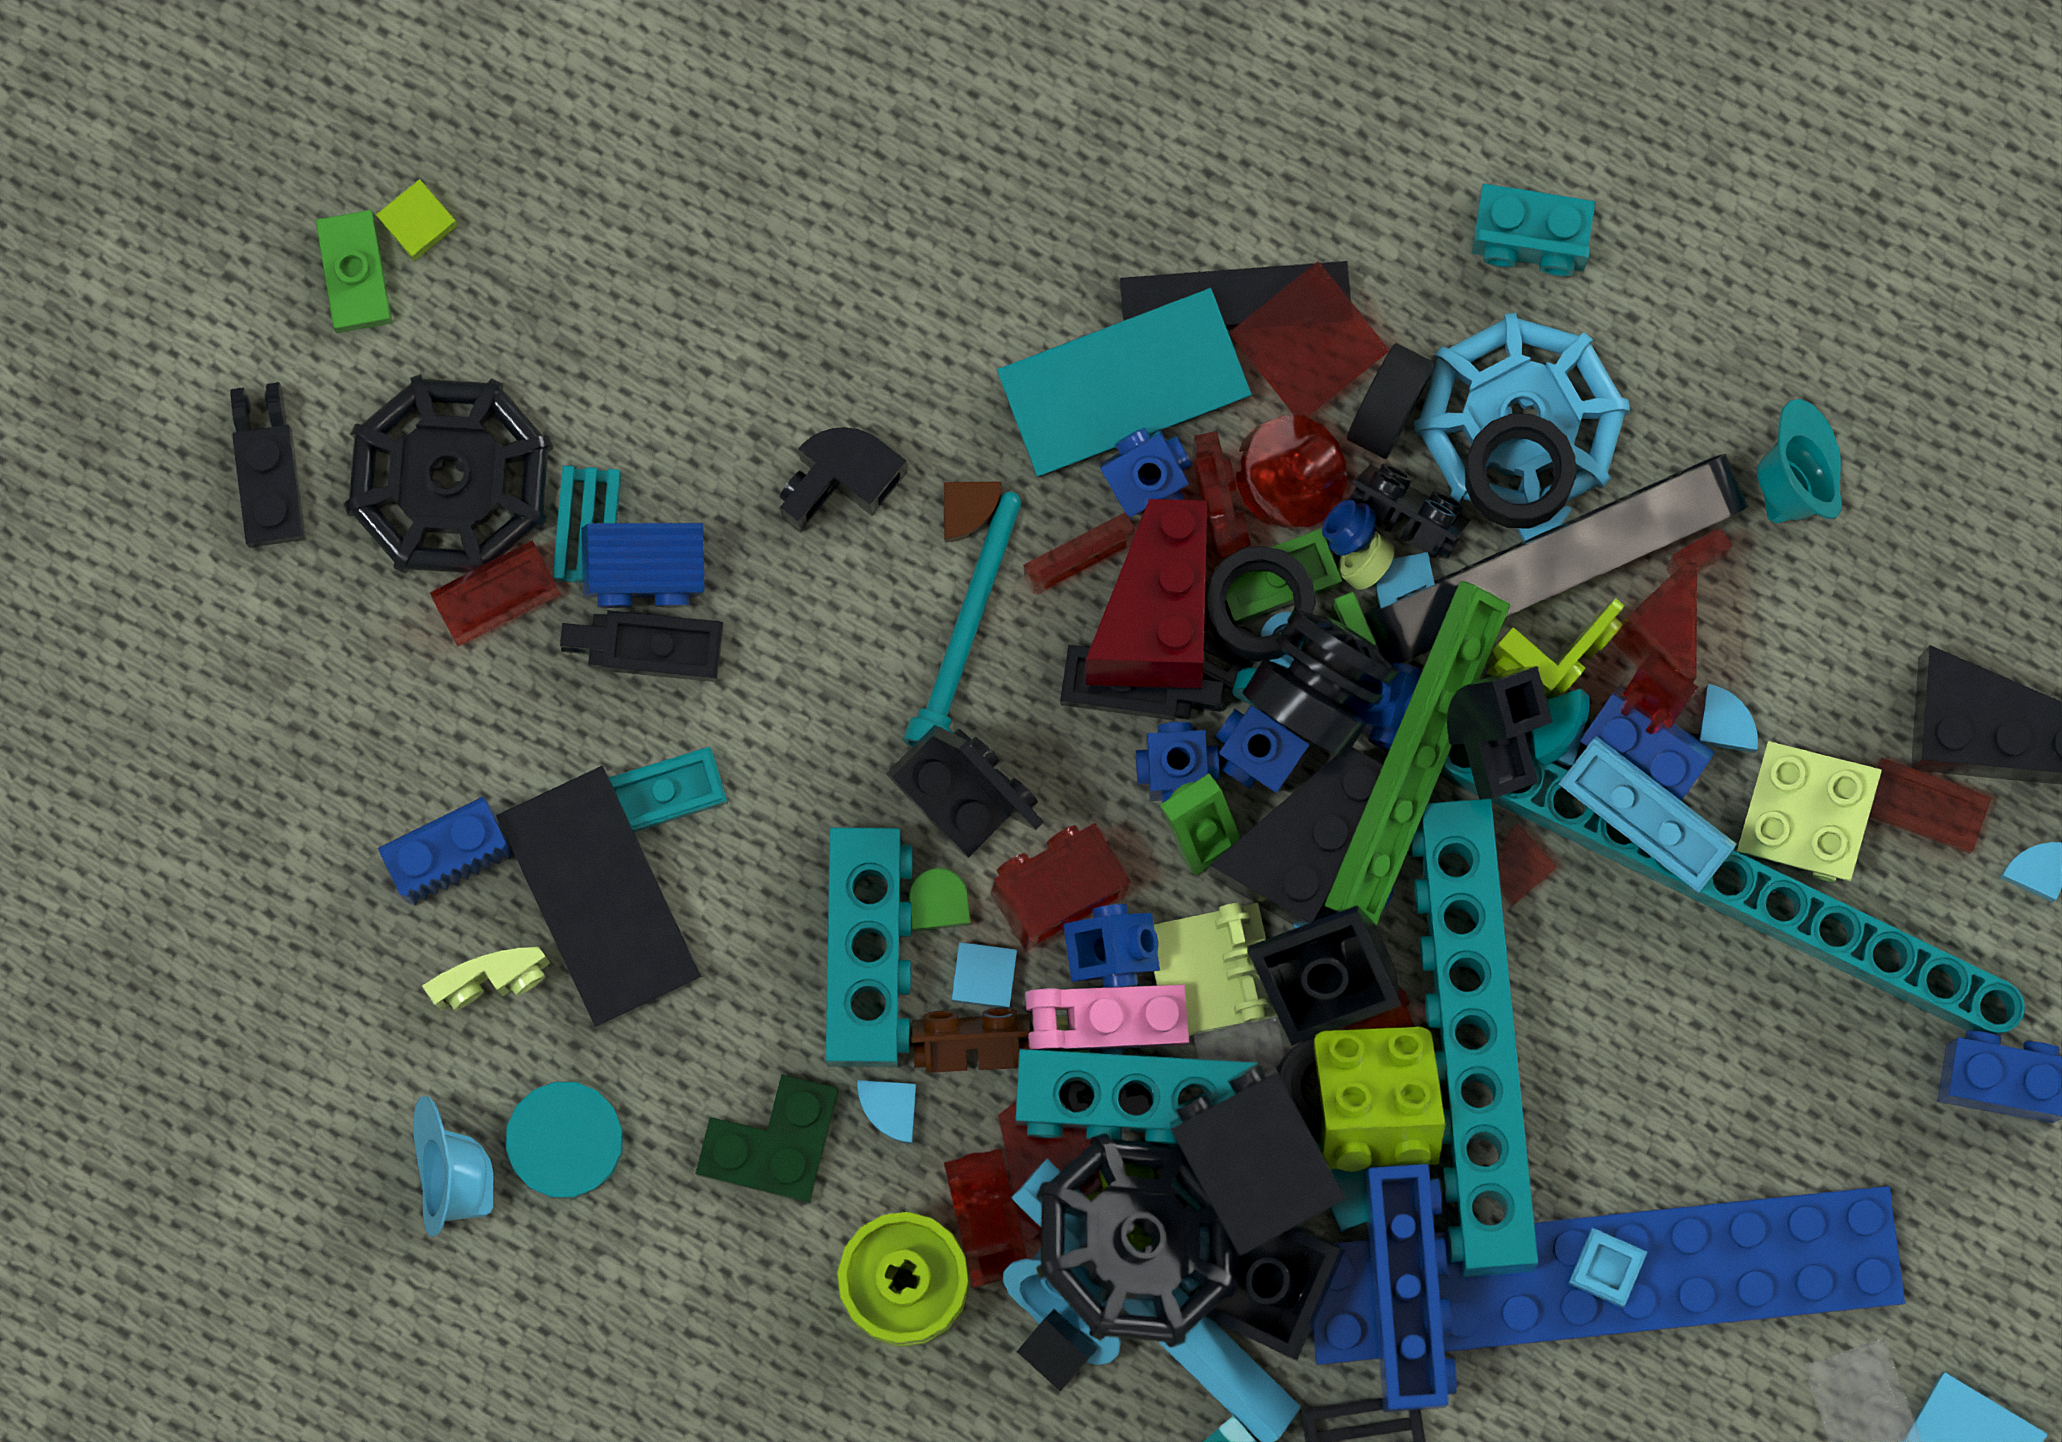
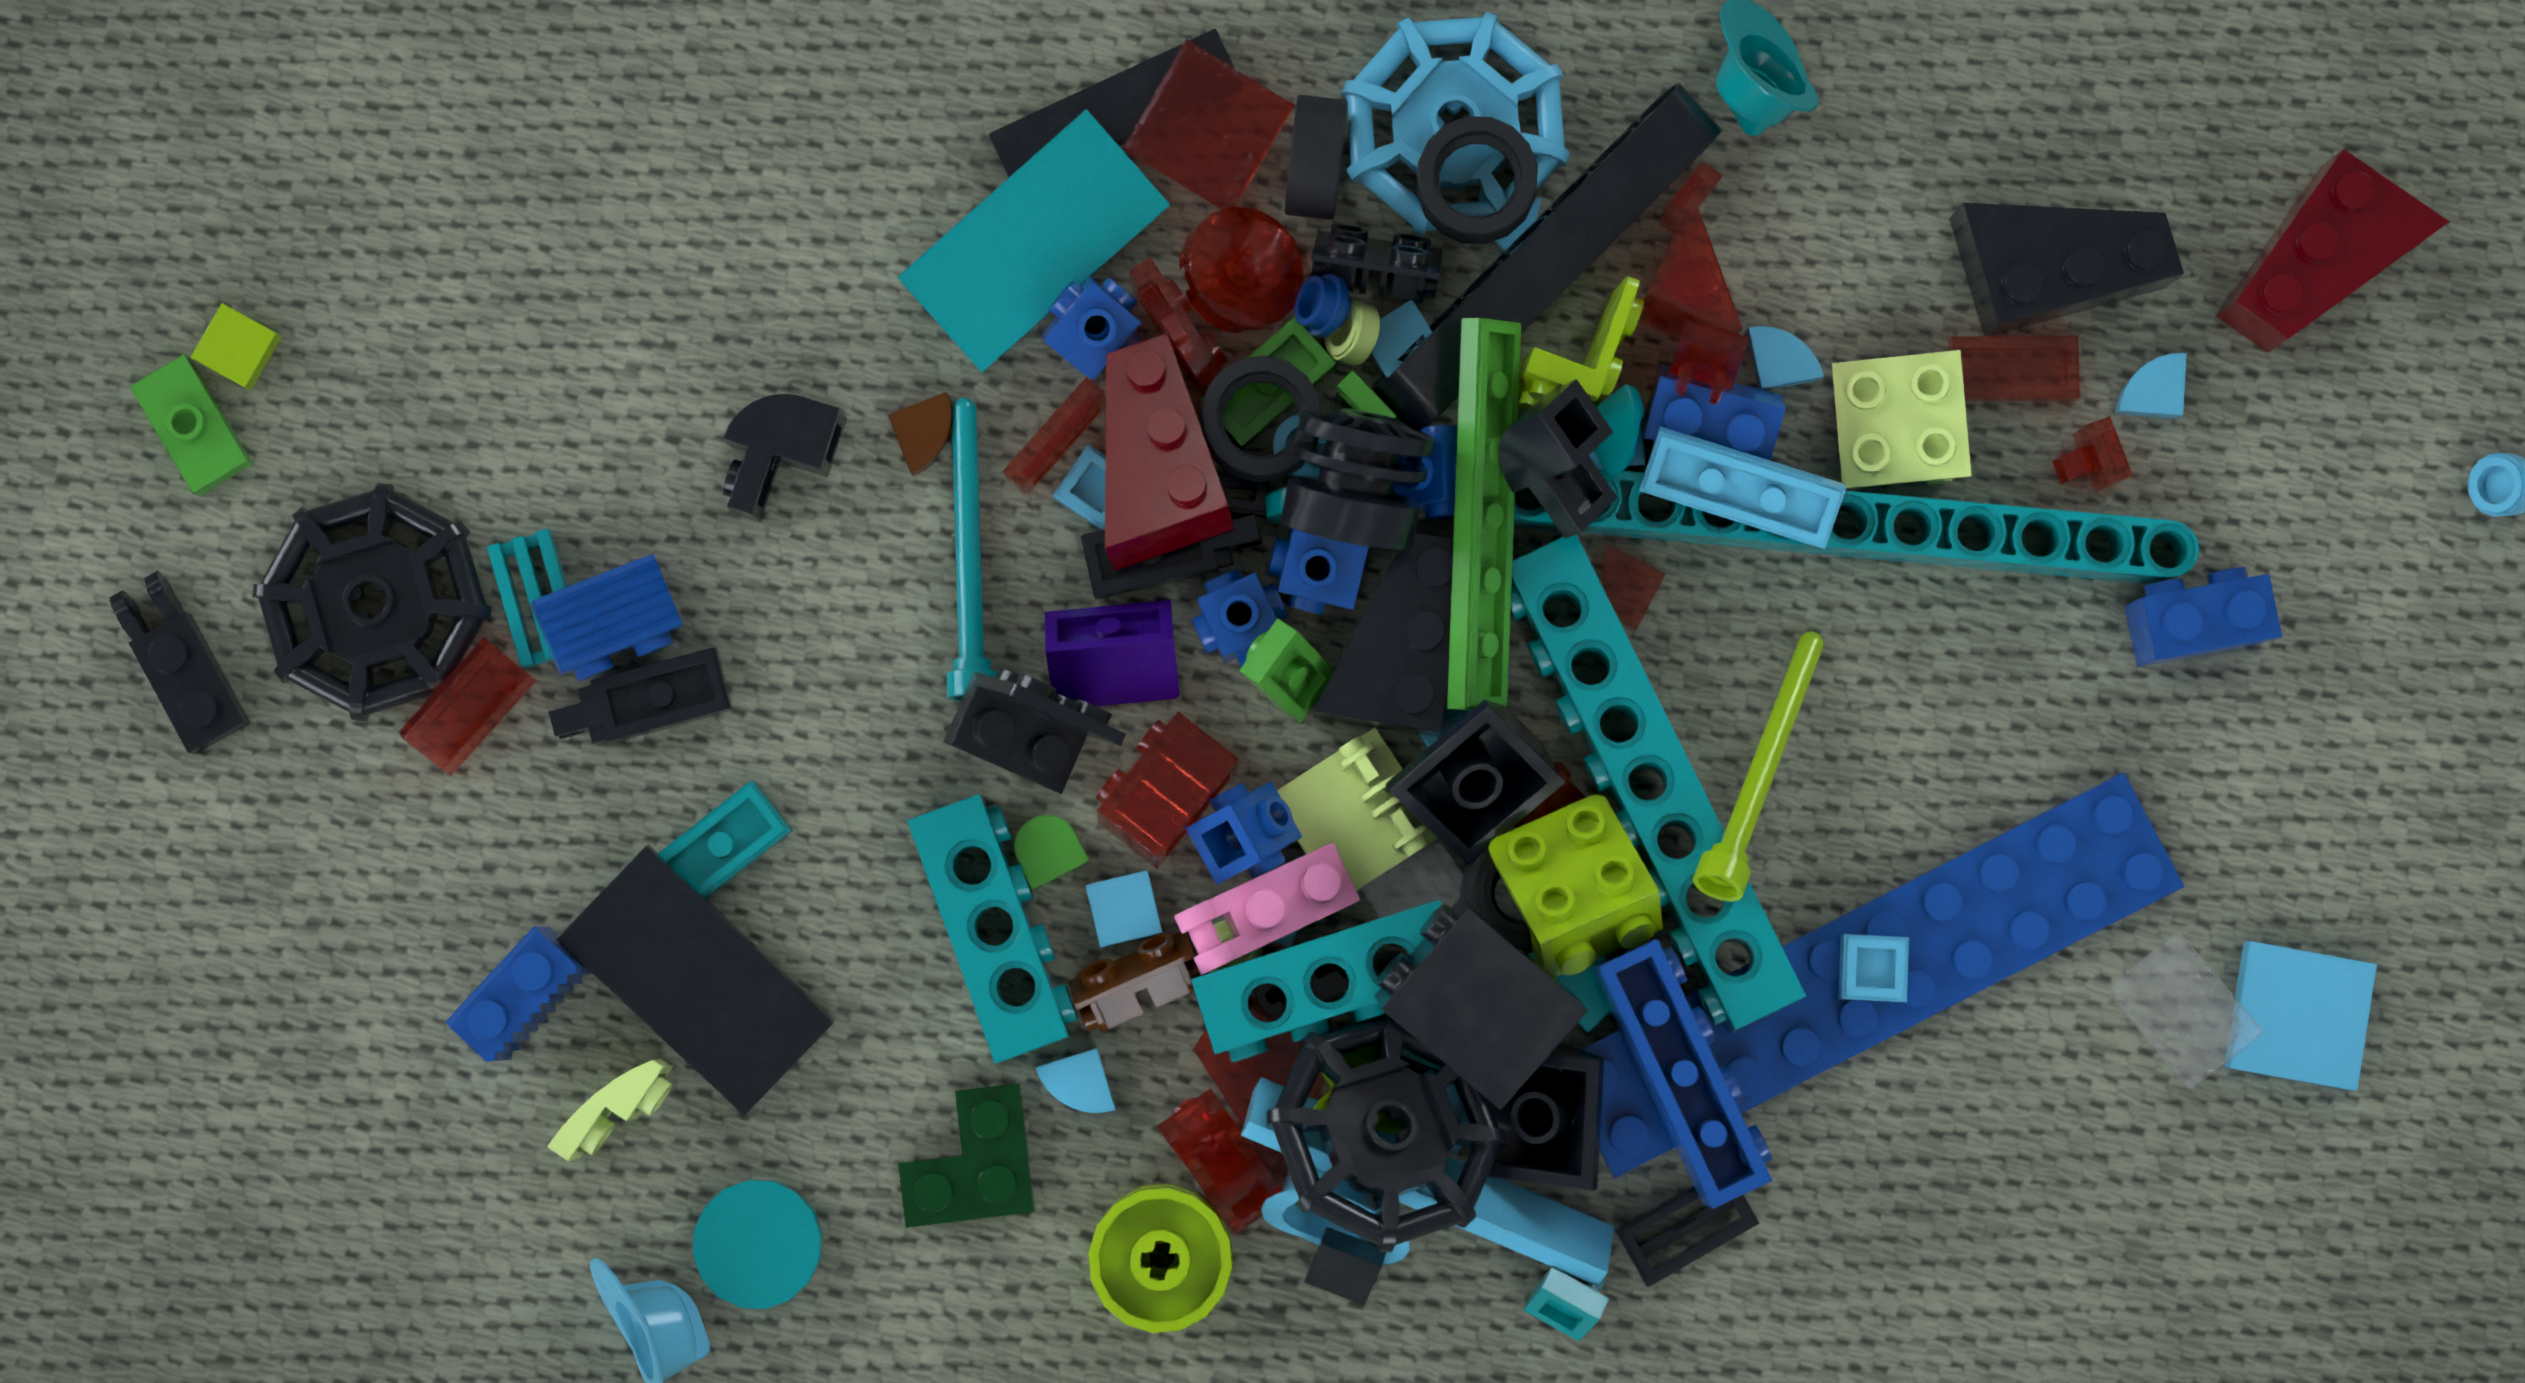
camera: 20 degrees left, 5 degrees up
(1058, 755) = (1113, 653): none -> dark purple panel
(1087, 606) = (1085, 487): none -> medium azure tile
(1508, 1127) = (1725, 868): none -> lime piece
(1967, 906) = (2097, 456): none -> clear red tile

